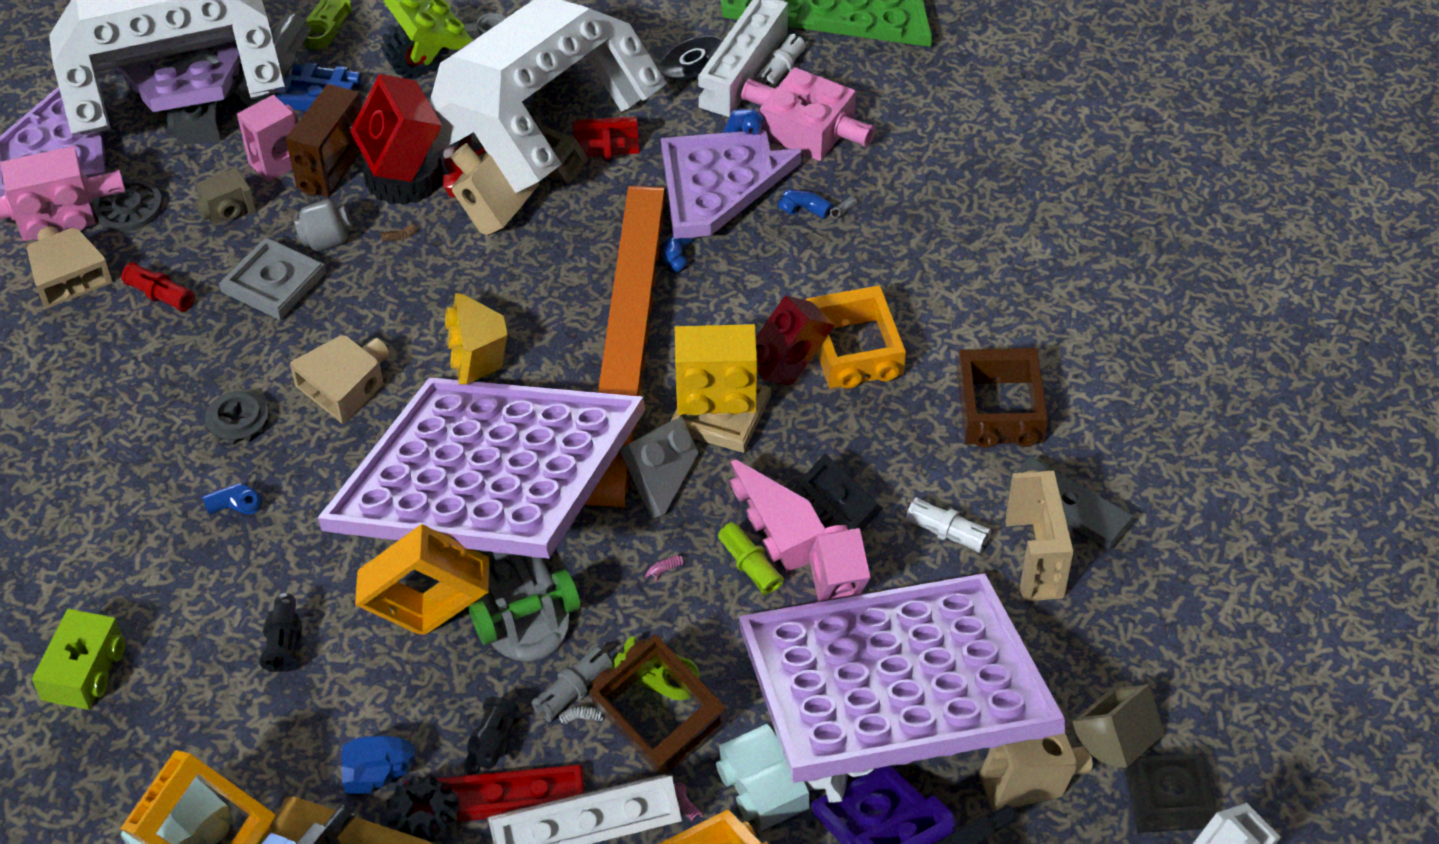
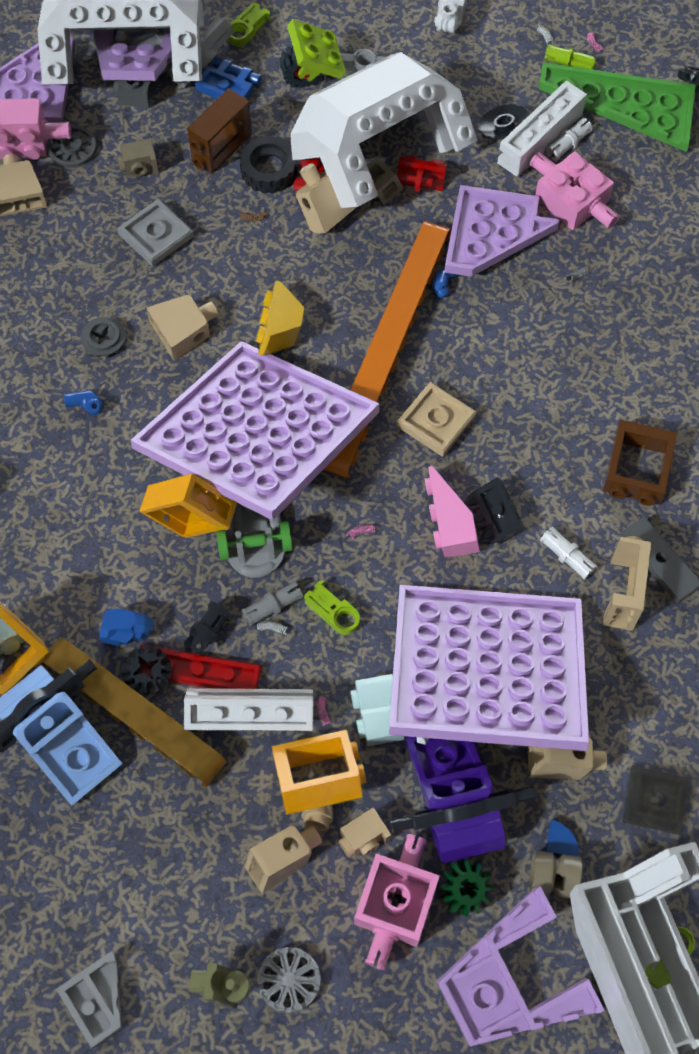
camera: 15 degrees right, 15 degrees up
(158, 286) = (67, 212): red pin -> none
(264, 136) = (177, 114): bright pink brick -> none
(283, 629) = (92, 509): black piece -> none
(323, 225) = (200, 198): light grey head -> none
(395, 128) = (267, 137): red brick -> none
(660, 463) = (380, 452): light grey wing -> none
(689, 734) = (336, 667): reddish brown window -> none
(715, 369) = (437, 394): yellow brick -> none
(744, 120) = (524, 186): blue arm -> none
(750, 558) = (421, 542): lime axle -> none
(790, 340) = (498, 381): dark red brick -> none
(807, 200) = (552, 262): blue arm -> none
(839, 563) = (478, 568): bright pink brick -> none
(855, 308) = (550, 362): light orange window -> none
(1120, 725) = (635, 744): dark tan brick -> none

